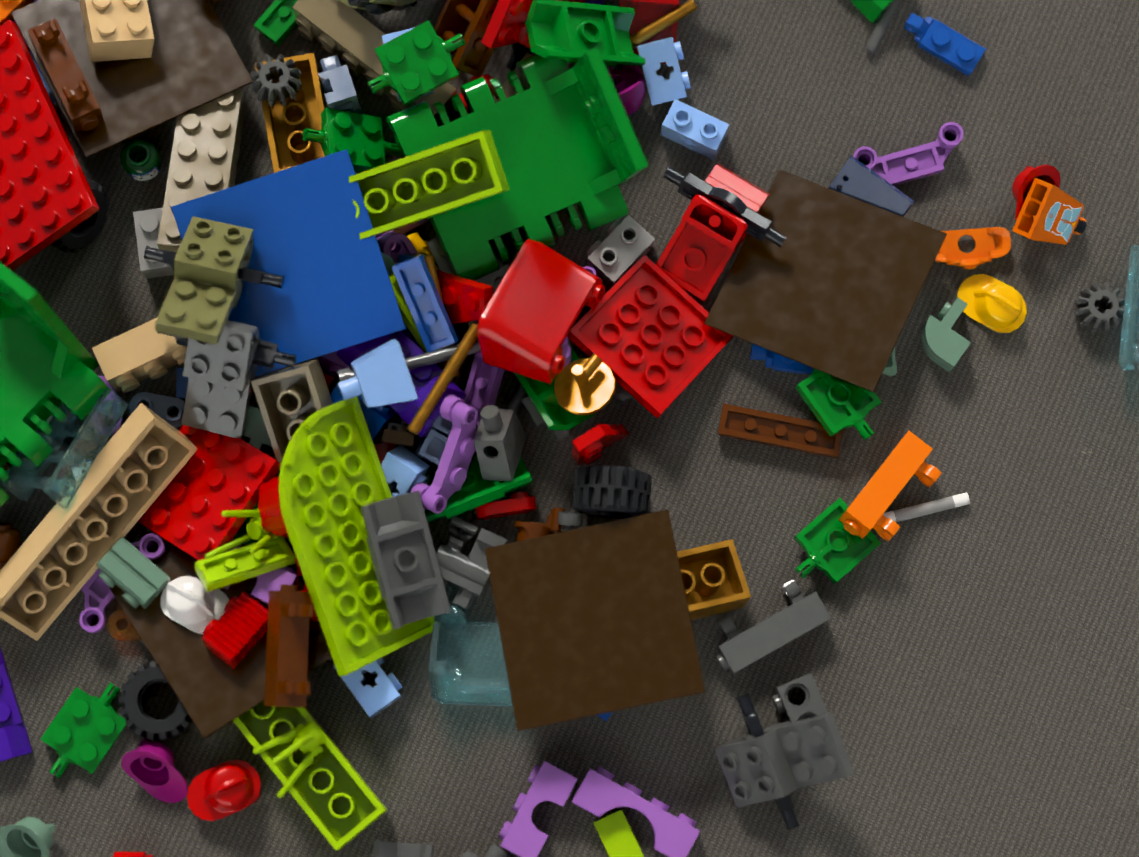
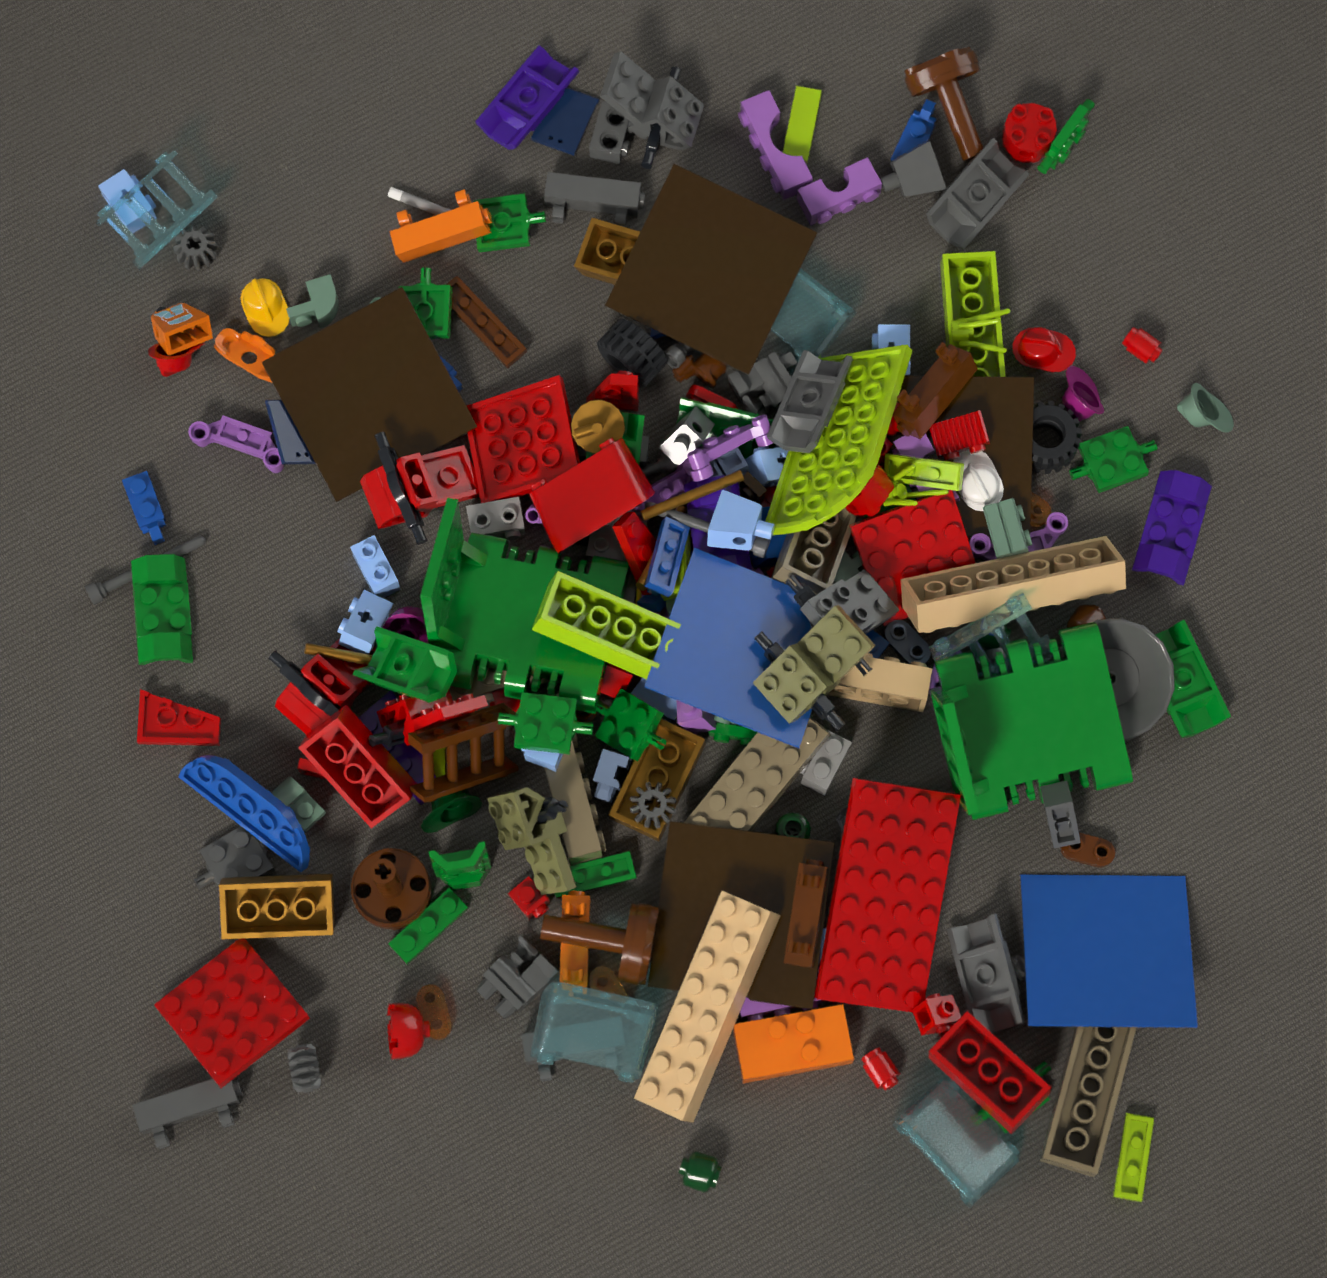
camera: 140 degrees left, 5 degrees down
(860, 694) = (566, 122): none -> dark blue container
(911, 685) = (526, 99): none -> dark purple piece

